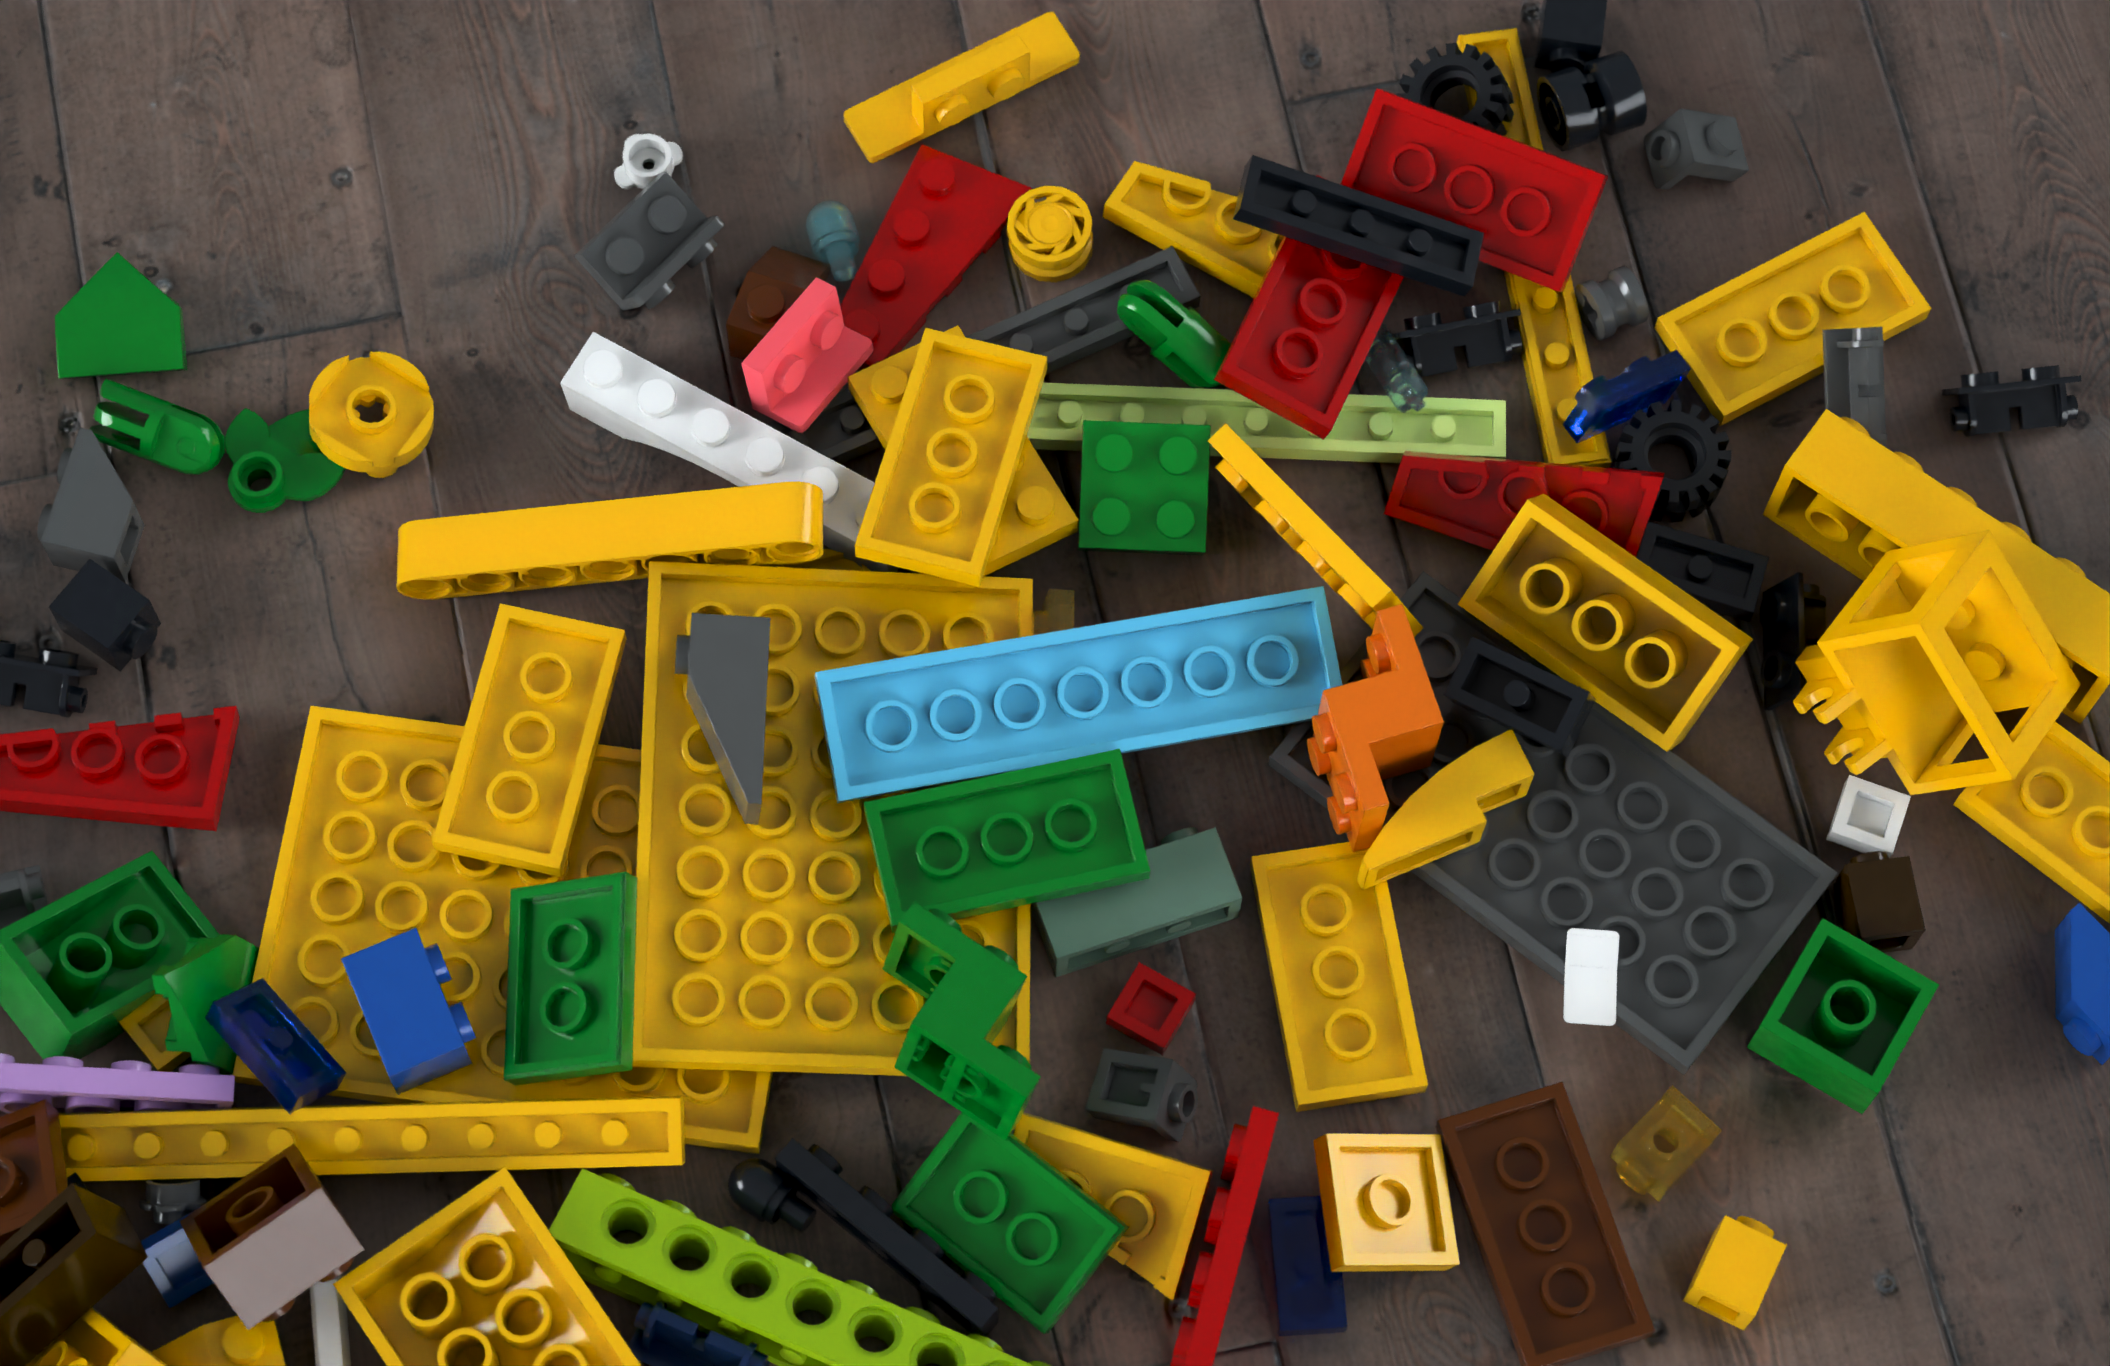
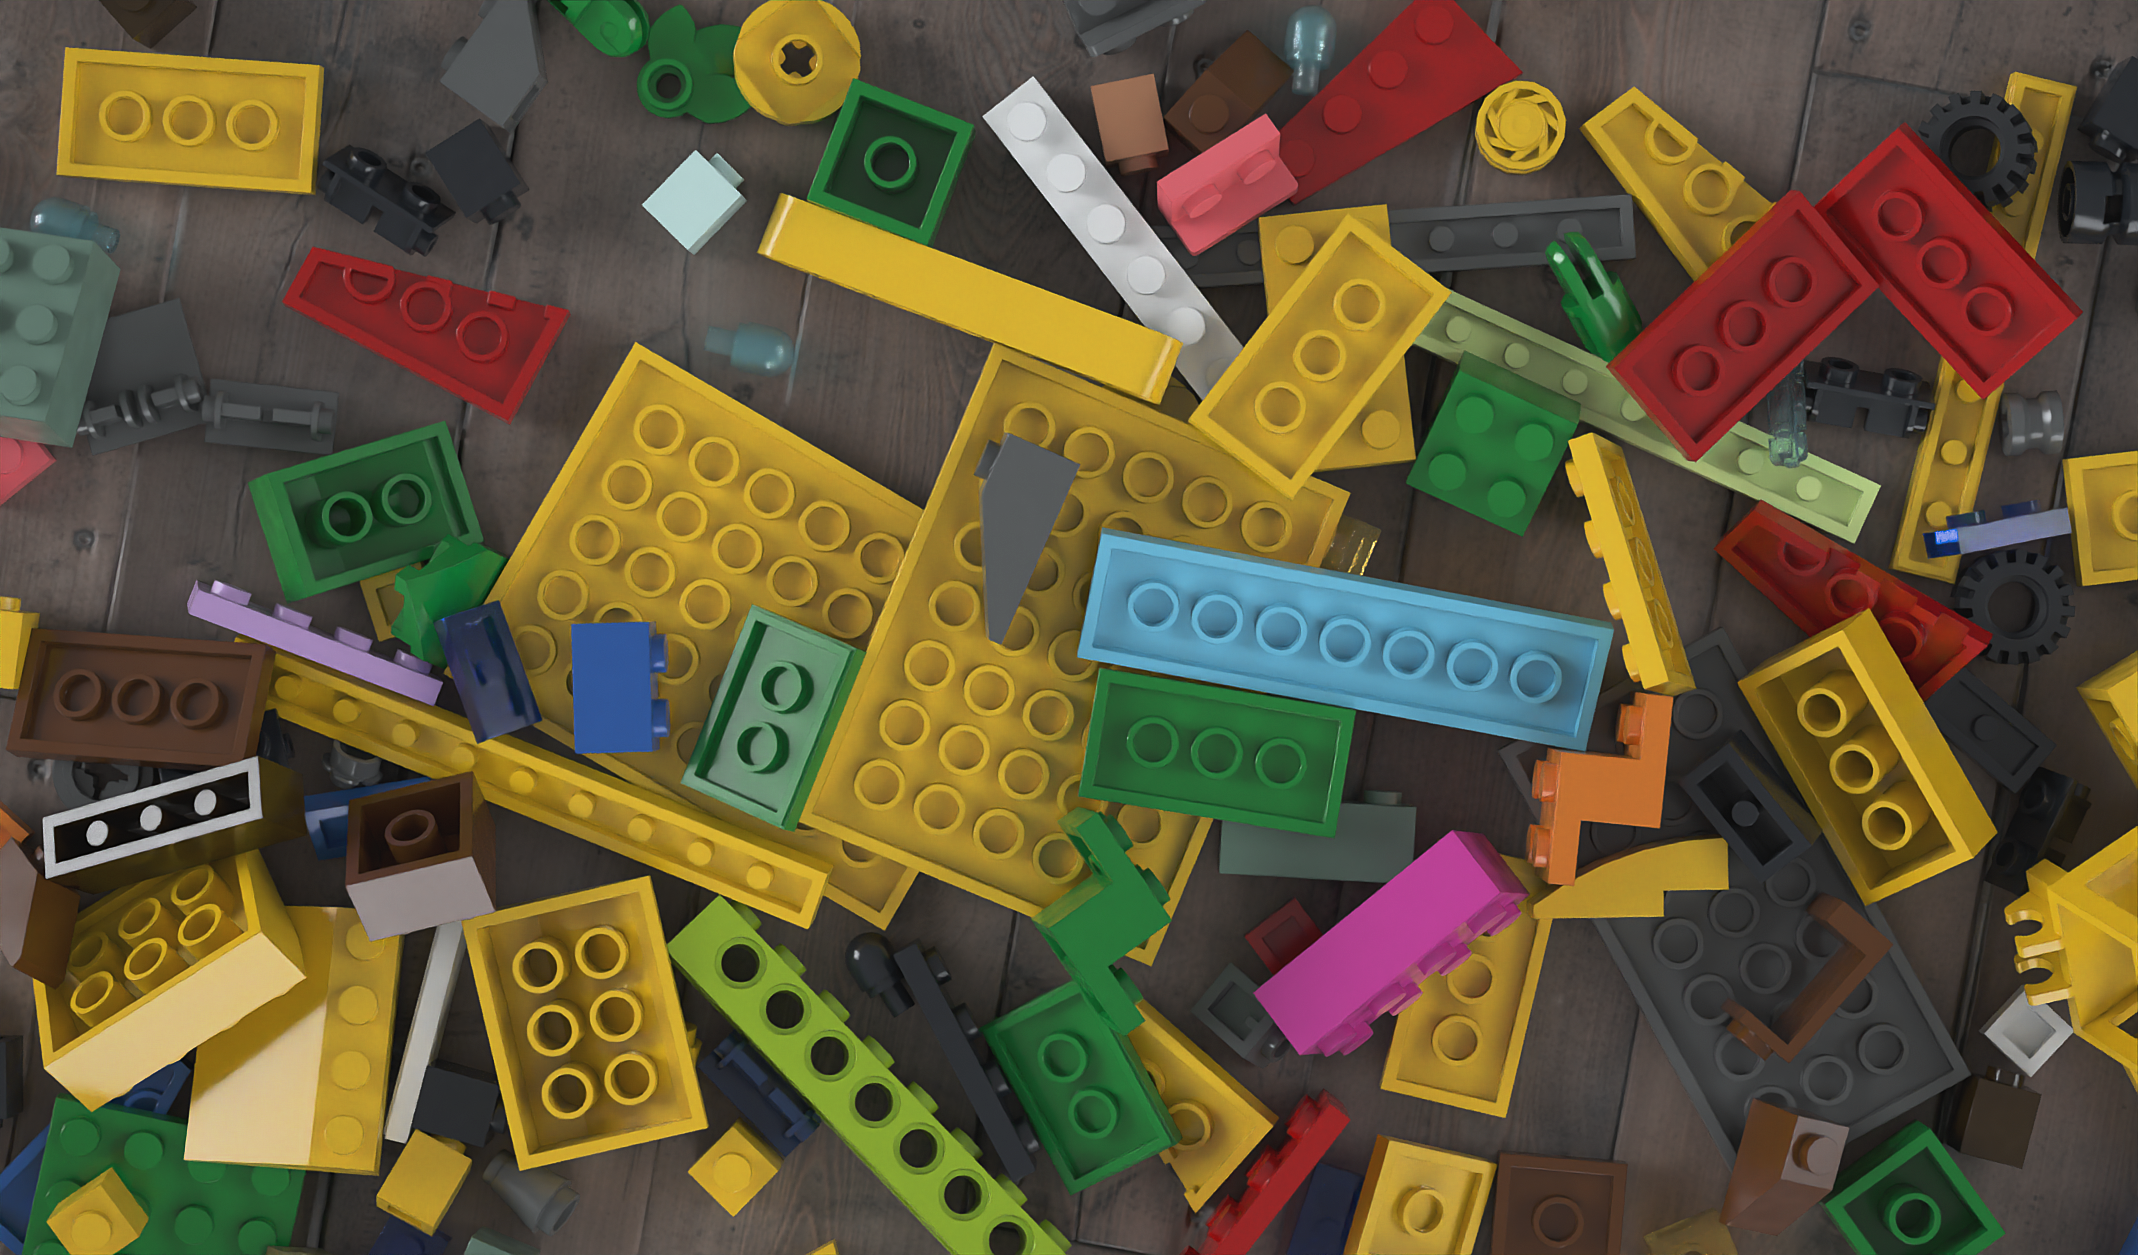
camera: 25 degrees right, 20 degrees up
(322, 565) = (697, 200): none -> light aqua brick
(425, 675) = (753, 348): none -> clear light blue cylinder
(492, 450) = (892, 163): none -> green brick
(529, 740) = (822, 466): yellow plate -> none
(698, 349) = (1130, 124): none -> nougat brick
(1248, 946) = (1393, 944): none -> dark pink brick
(1358, 225) = (1813, 267): black plate -> none
(1591, 976) = (1697, 1081): white sticker -> none
(1662, 769) = (1860, 952): none -> reddish brown panel
(1705, 1011) = (1781, 1167): none -> reddish brown slope

